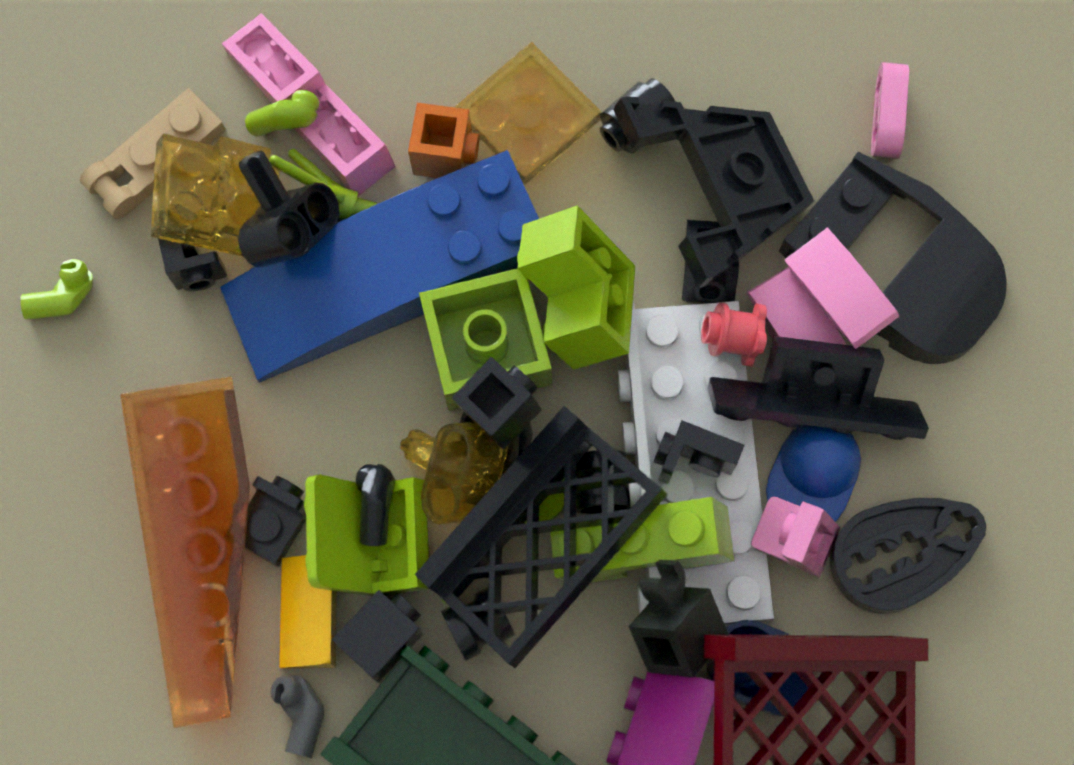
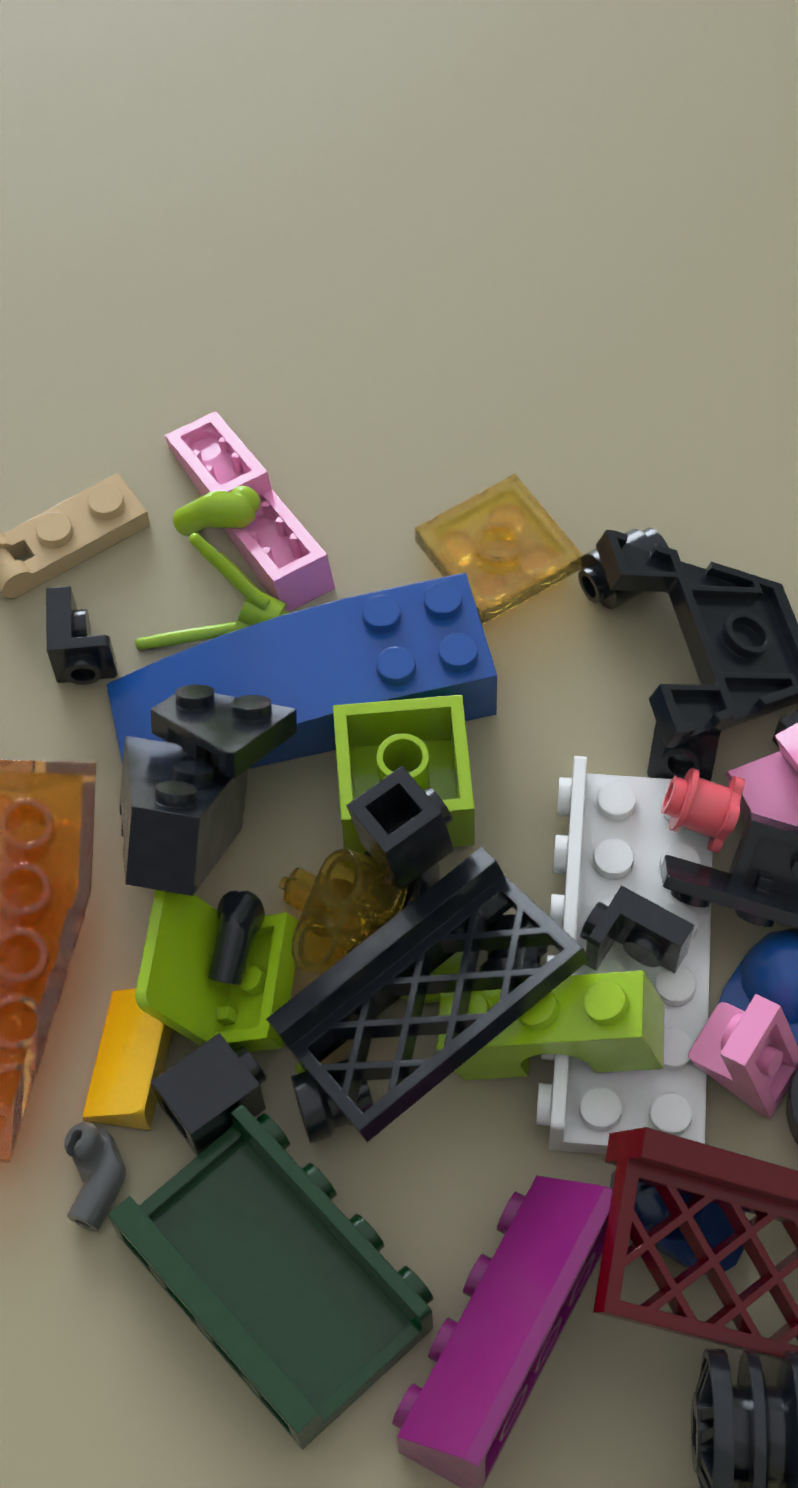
camera: 10 degrees right, 15 degrees down
(202, 192) = (121, 579): clear yellow plate -> none
(274, 518) = (110, 943): black bracket -> none
(286, 221) = (196, 607): black beam -> none
(306, 407) = (175, 815): none -> black wedge
(331, 328) = (230, 727): none -> black wing
(441, 140) = (391, 553): orange brick -> none
(585, 285) = (530, 723): lime brick -> none
(674, 622) = (572, 1123): pearl dark grey brick -> none

